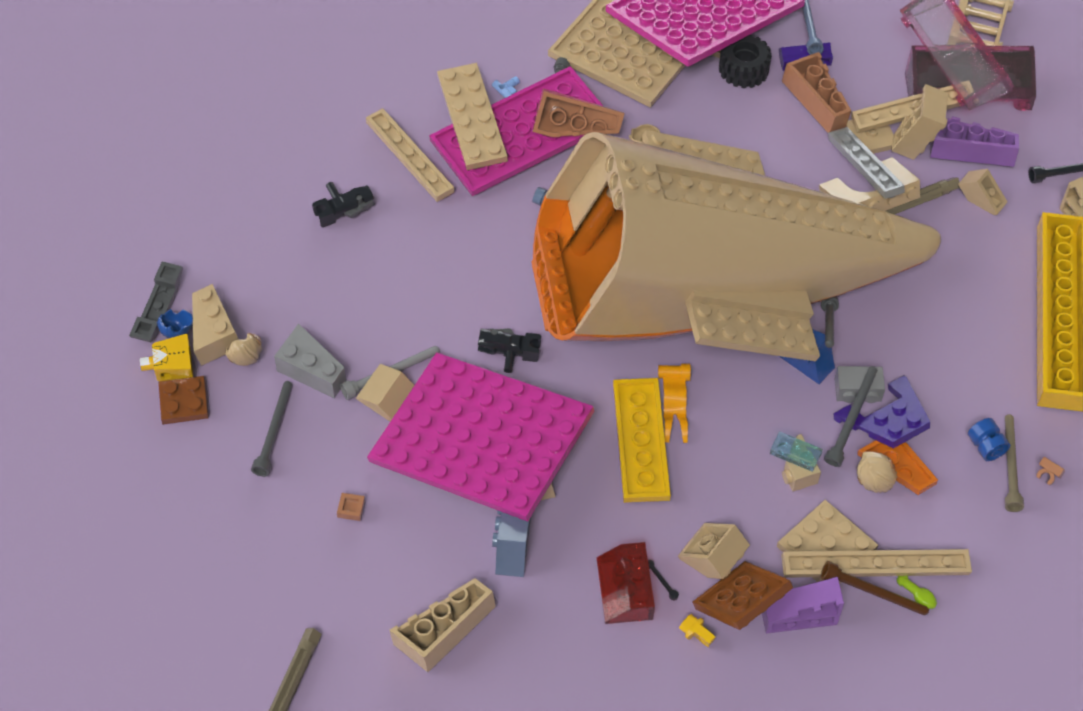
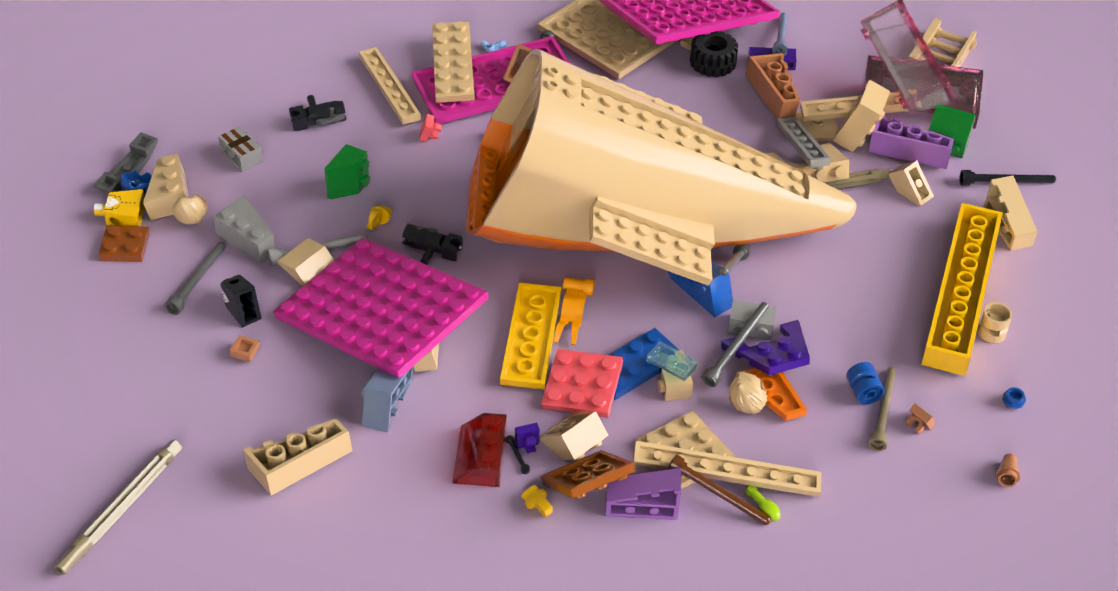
camera: 10 degrees right, 10 degrees down
(273, 262) = (240, 149): none -> light grey brick
(331, 450) = (240, 292): none -> black torso
(400, 276) = (347, 172): none -> green slope
(445, 320) = (378, 215): none -> yellow piece
(467, 204) = (429, 129): none -> coral tile
(669, 560) = (527, 437): none -> dark purple tile
(708, 488) = (582, 382): none -> coral plate
(748, 455) = (635, 366): none -> blue plate
(1014, 117) = (953, 124): none -> green slope

